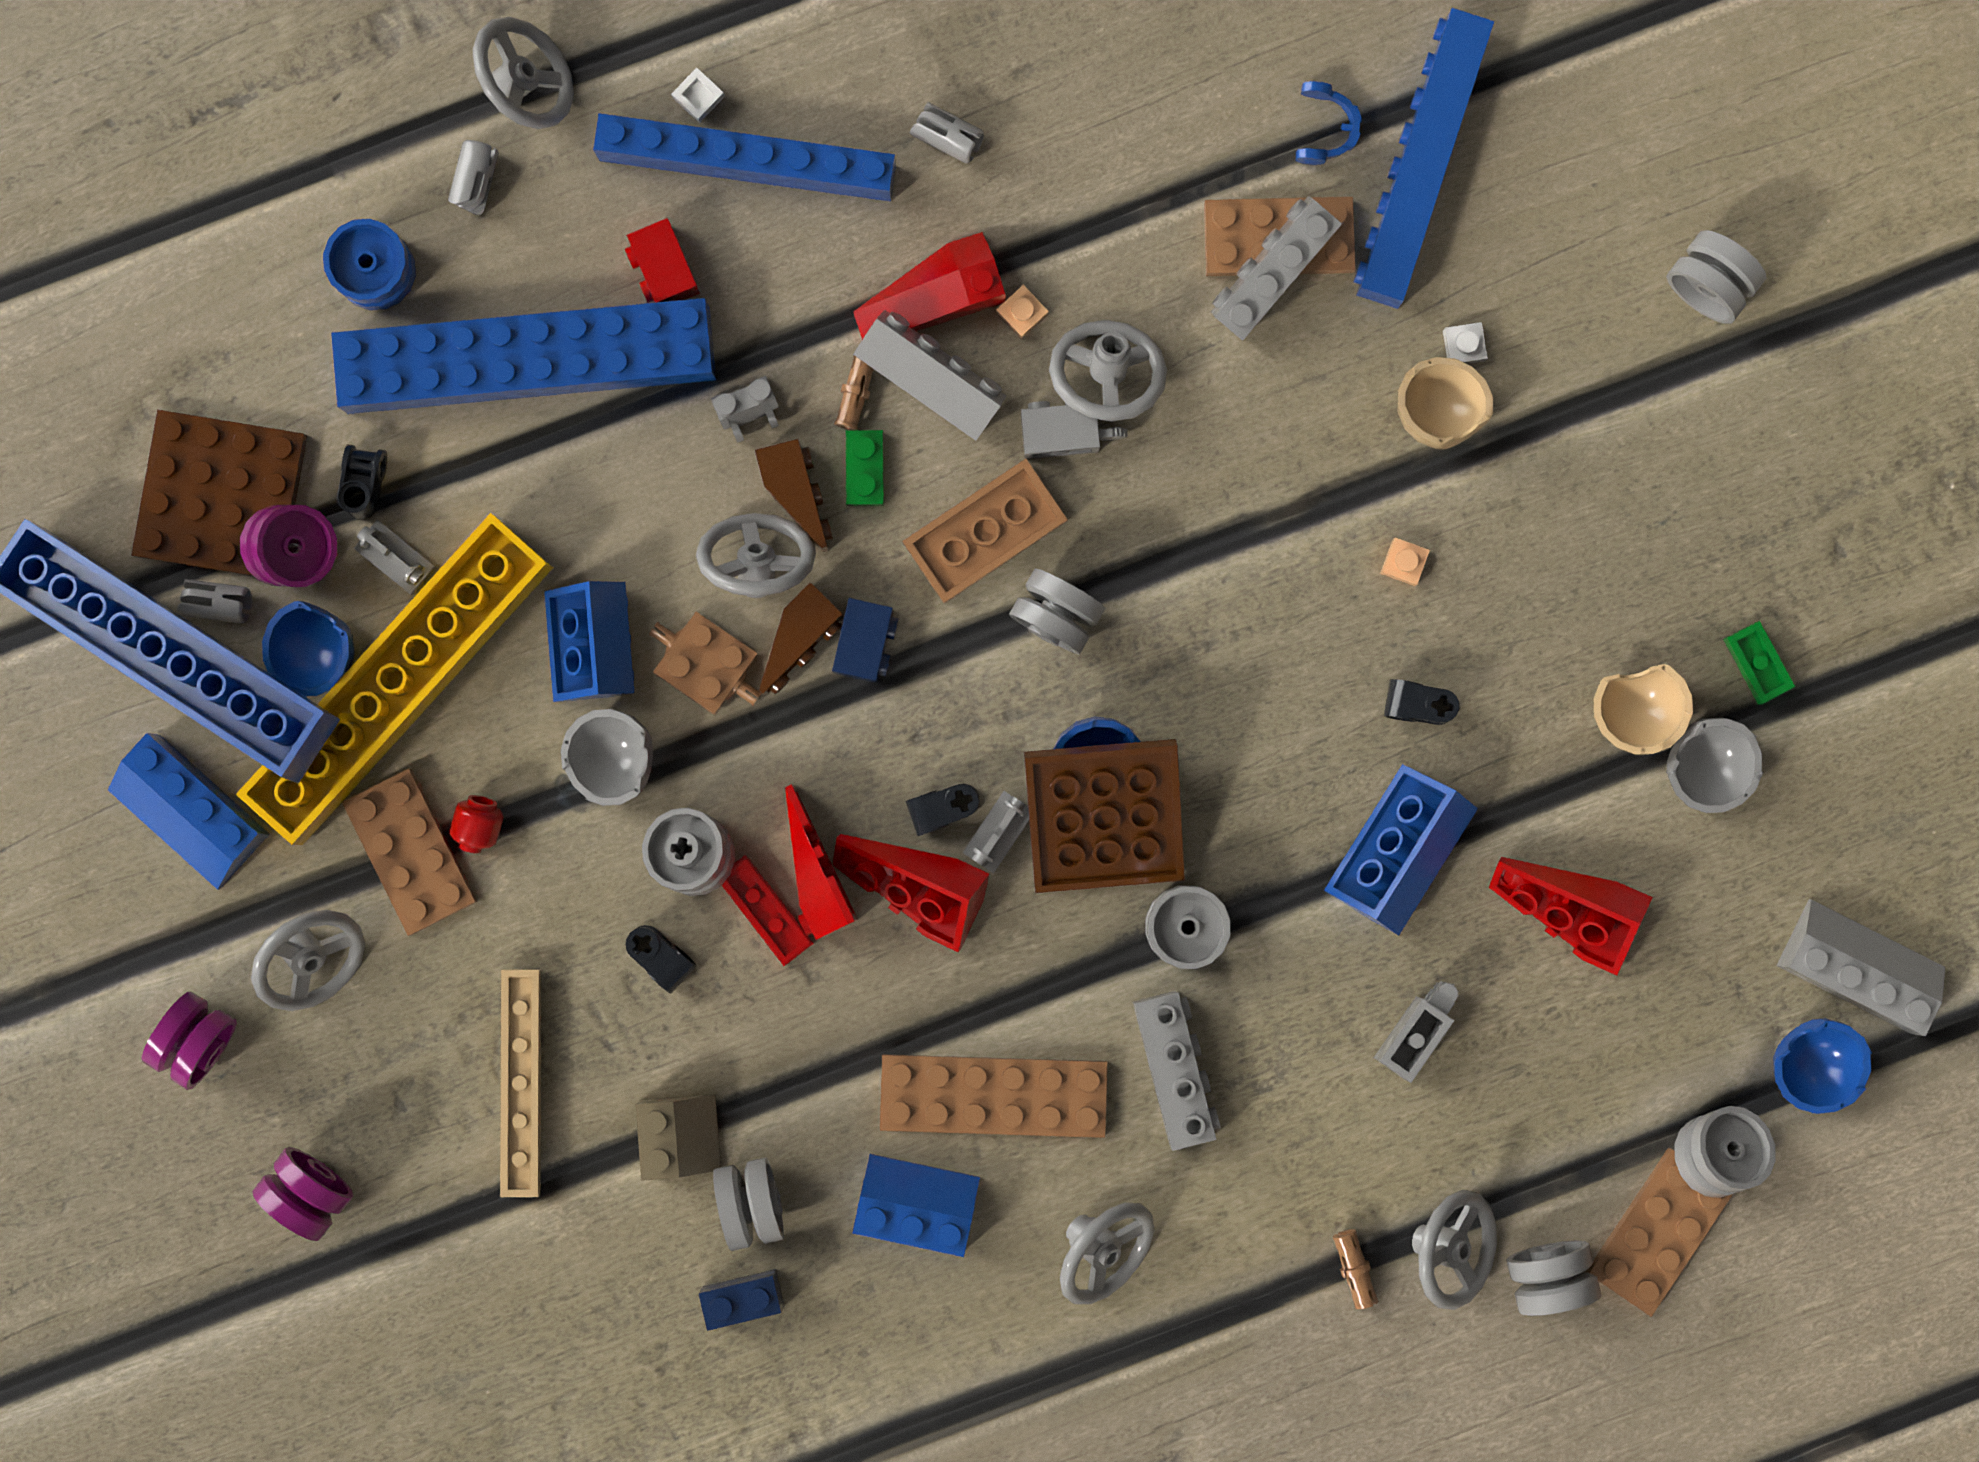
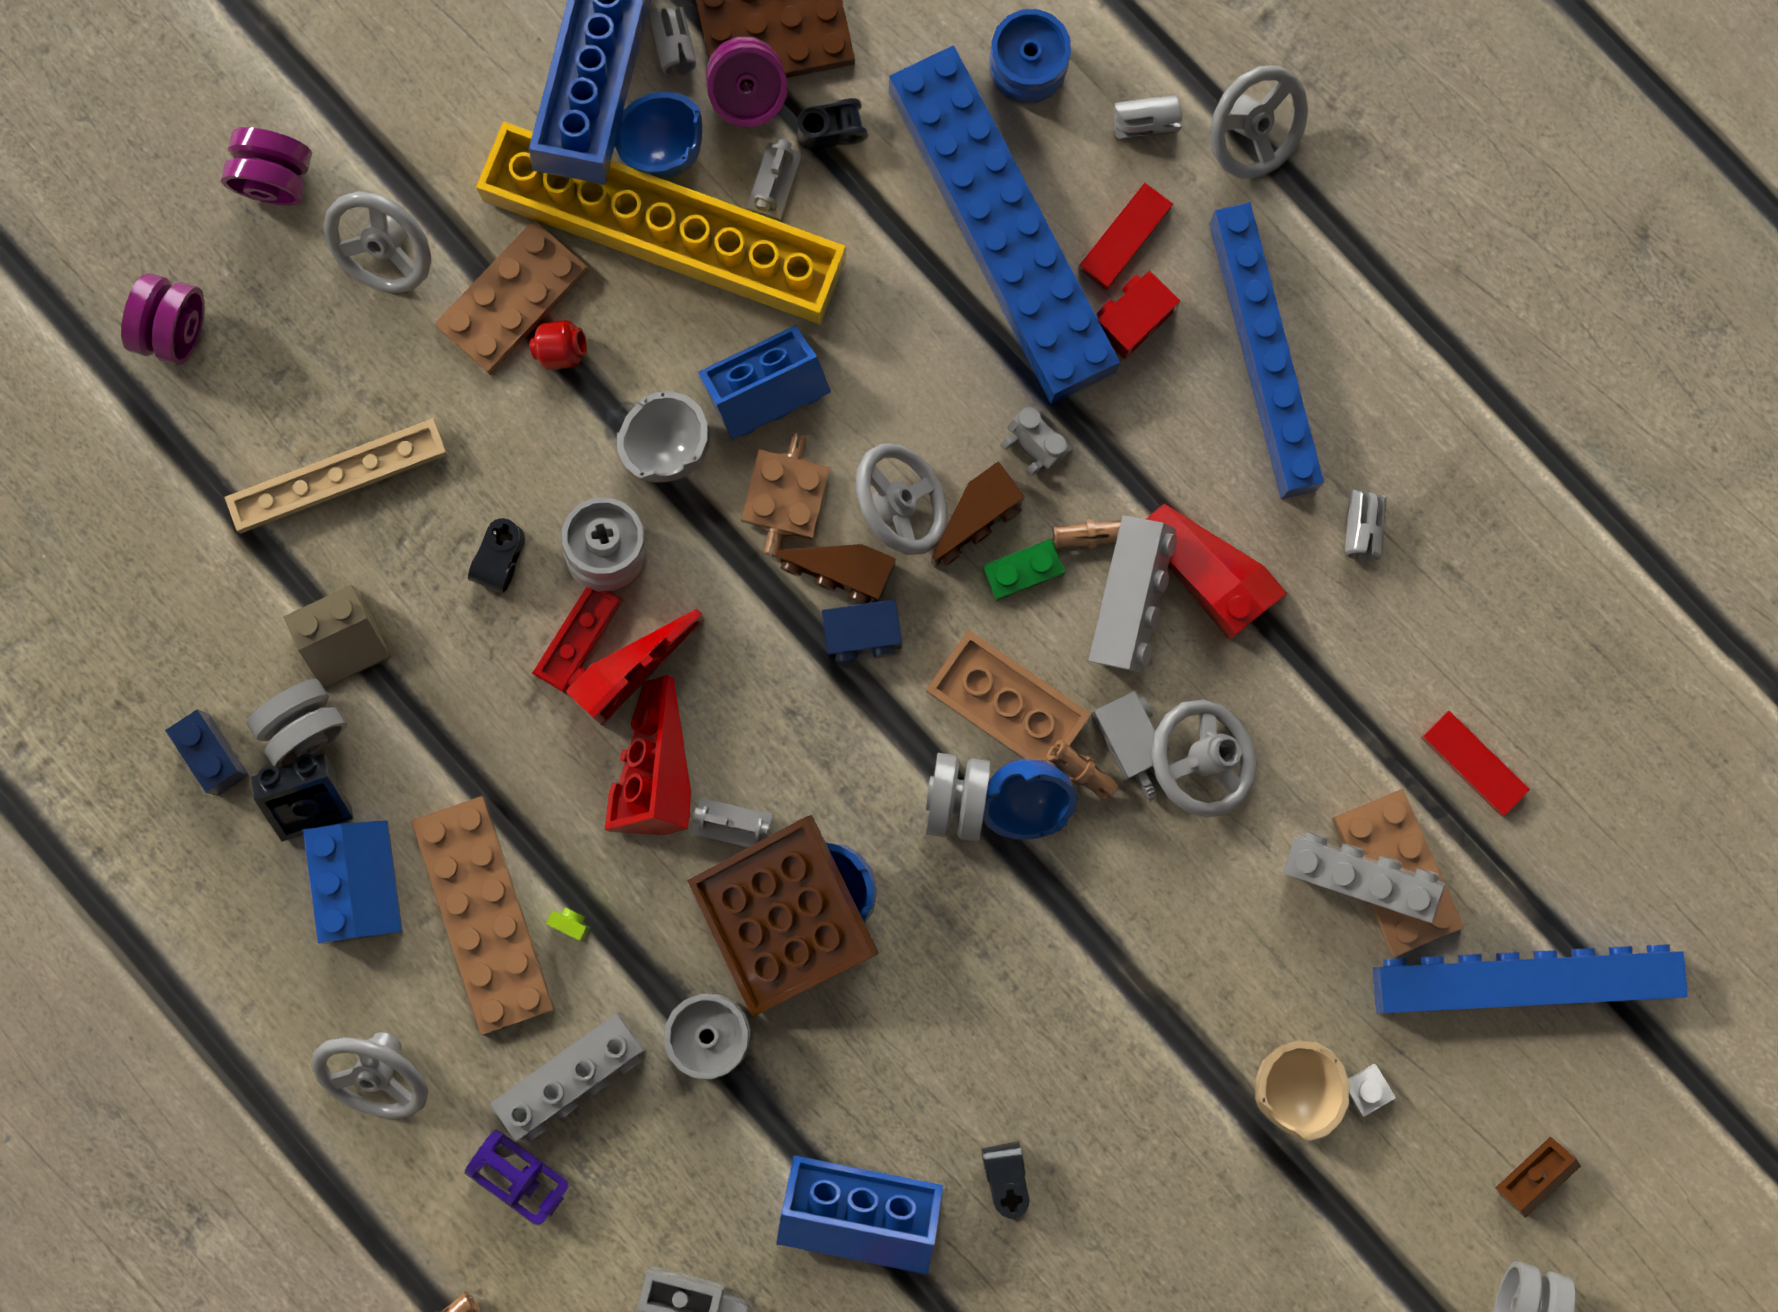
camera: 70 degrees right, 5 degrees down
(186, 809) = (477, 87): blue slope -> none
(581, 244) = (1125, 236): none -> red tile
(698, 95) = (1305, 286): white plate -> none
(818, 1224) = (300, 796): none -> black plate
(937, 810) = (732, 758): black piece -> none
(1022, 311) = (1227, 658): light nougat plate -> none
(1033, 1017) = (569, 923): none -> lime plate
(1075, 487) = (1082, 770): none -> medium nougat pin
(1084, 546) = (1029, 800): none -> blue cylinder
(1207, 124) = (1475, 763): none -> red tile
(1255, 1146) = (523, 1182): none -> dark purple piece
(1324, 91) = (1551, 860): blue piece -> none
(1405, 561) = (1137, 1112): light nougat plate -> none
(1600, 223) = (1538, 1177): none -> reddish brown plate

